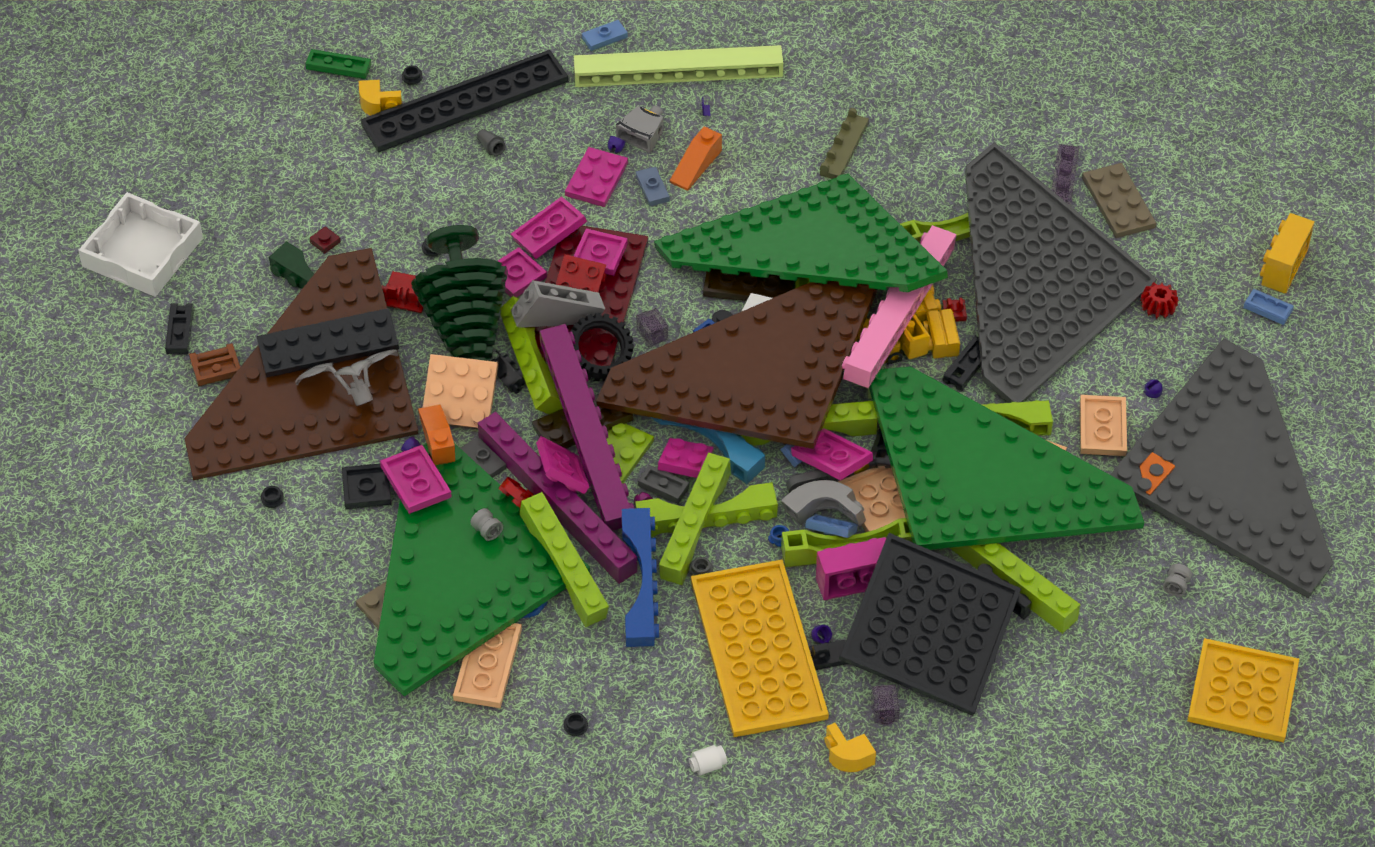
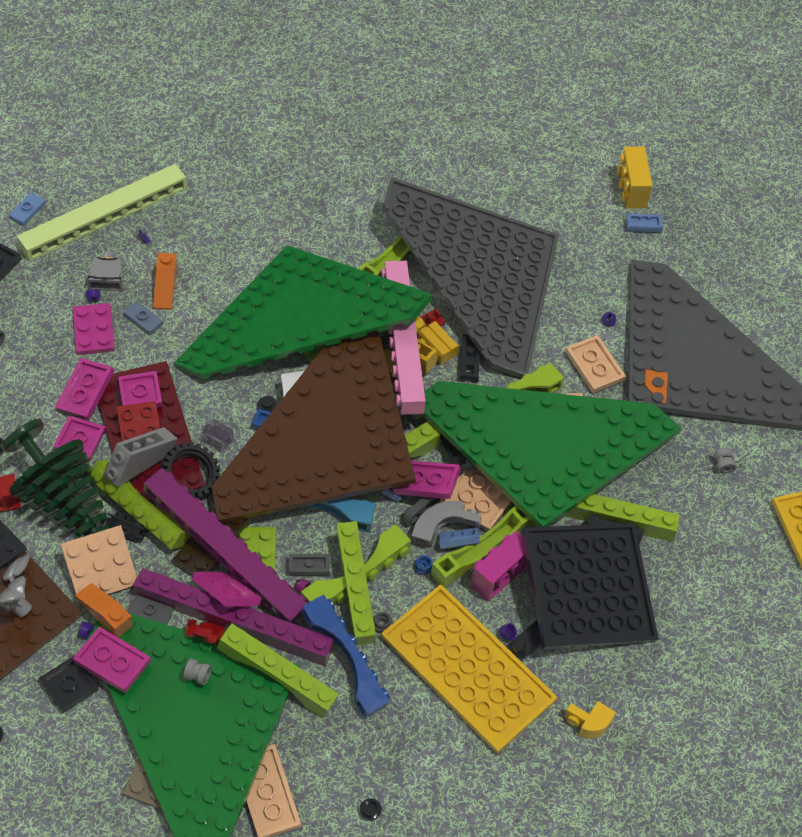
camera: 35 degrees left, 5 degrees up
(683, 457) = (313, 534): dark pink plate -> none
(708, 759) = (493, 785): white brick -> none
(742, 285) = (269, 371): dark brown plate -> none
(844, 145) = (269, 224): olive hinge -> none
(885, 704) = (592, 666): clear purple brick -> none
(1065, 171) = (439, 177): clear purple plate -> none
(1119, 200) = (491, 185): dark tan plate -> none
(1159, 300) = (570, 249): red gear -> none

